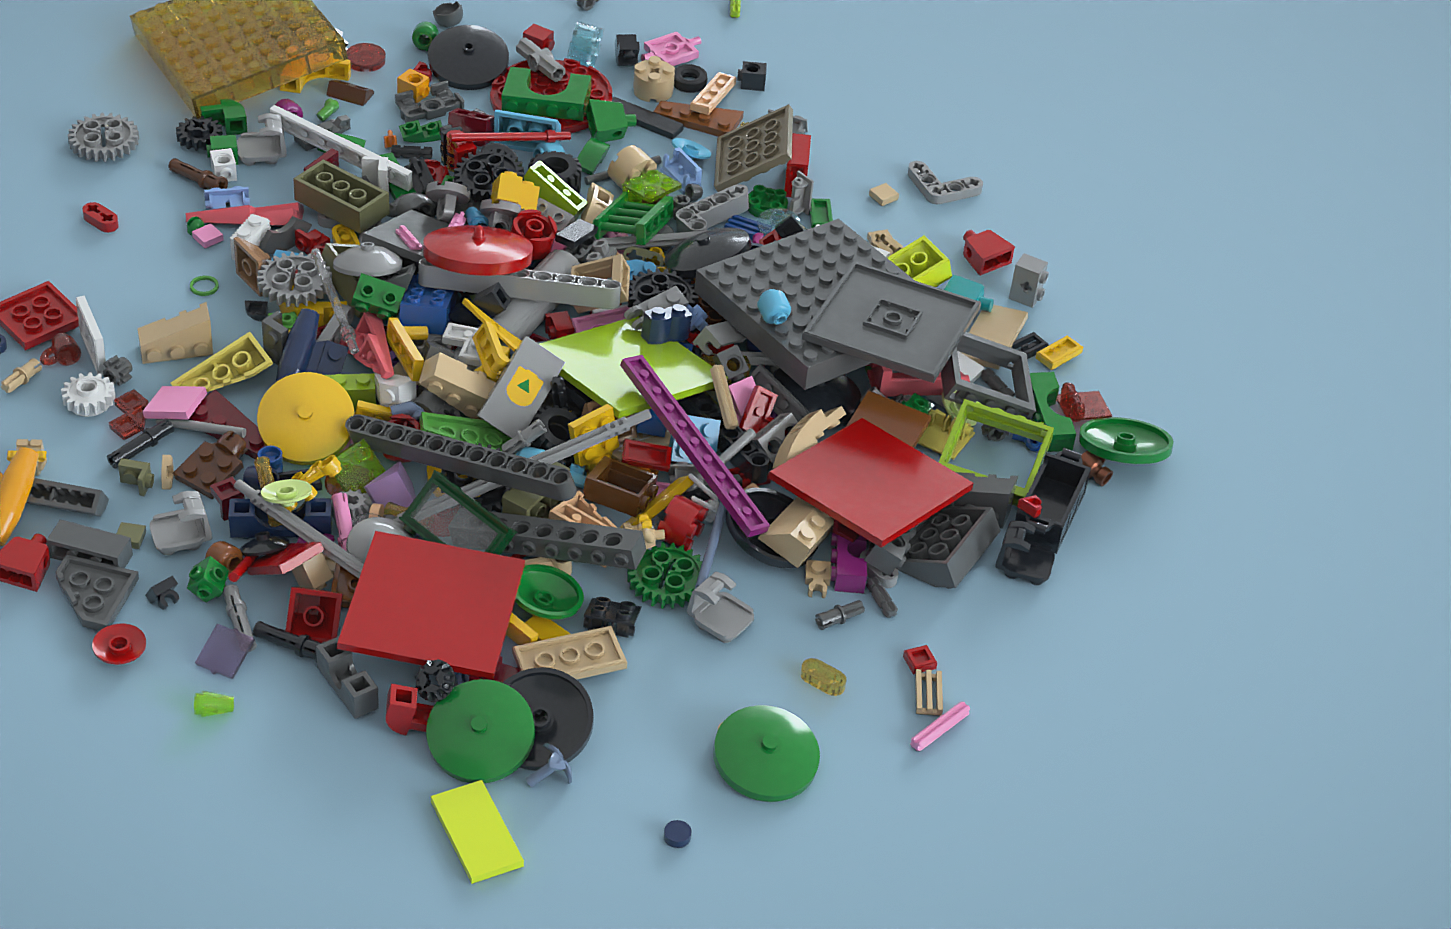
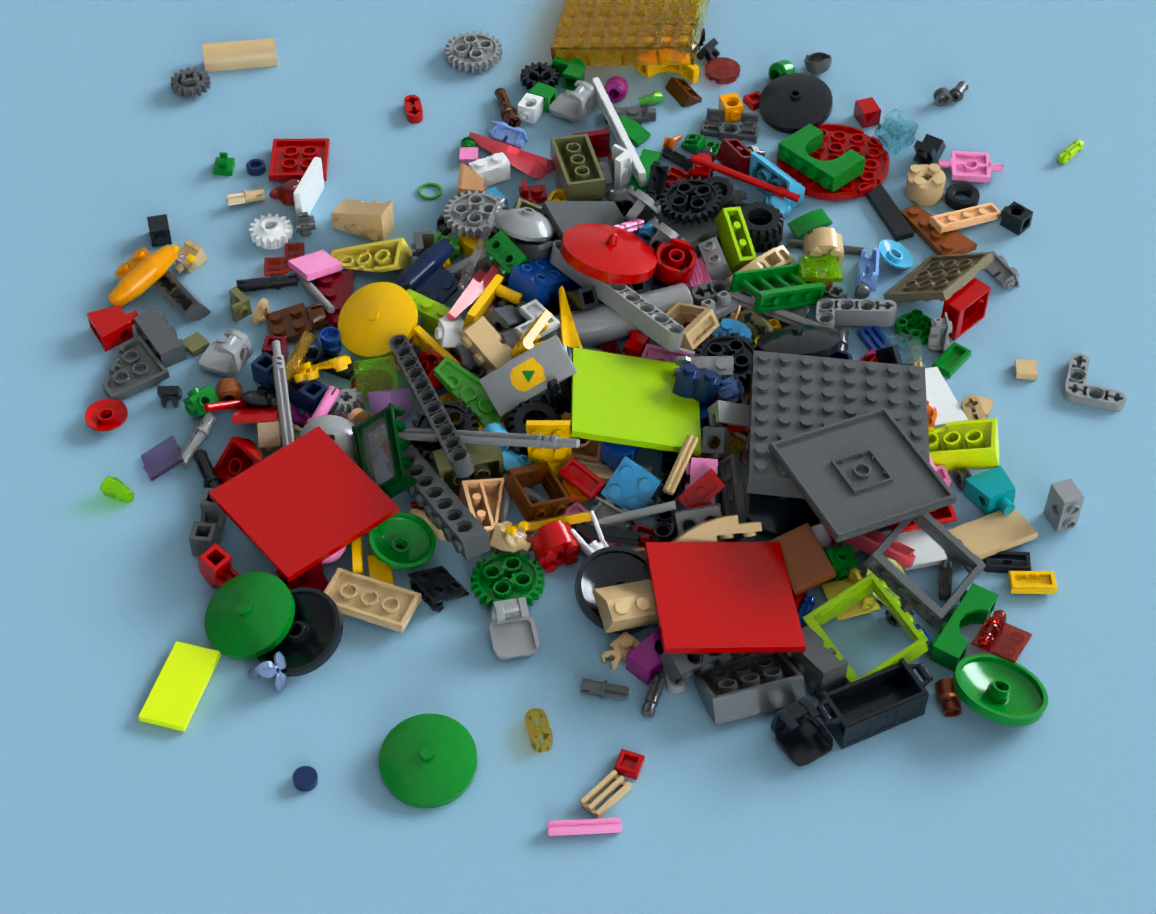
camera: 45 degrees right, 5 degrees up
(284, 237) = (511, 181): dark grey tile -> none
(286, 492) = (293, 365): yellowish green dish -> none
(408, 238) = (574, 218): bright pink axle -> none
(408, 408) = (444, 349): sand blue arm -> none
(445, 679) = (246, 558): black gear -> none
(512, 189) = (681, 219): yellow brick -> none
(524, 437) = (498, 415): light grey axle -> none
(540, 59) = (846, 128): light grey piece -> none
(576, 233) = (710, 277): tile -> none
(608, 120) = (849, 201): green torso -> none
(695, 446) = (604, 490): magenta plate -> none
(712, 544) = (570, 566): sand blue bar -> none
(774, 306) = (767, 410): medium azure head -> none
(987, 251) = (1061, 461): red torso -> none
(1030, 505) = (837, 694): red tile -> none

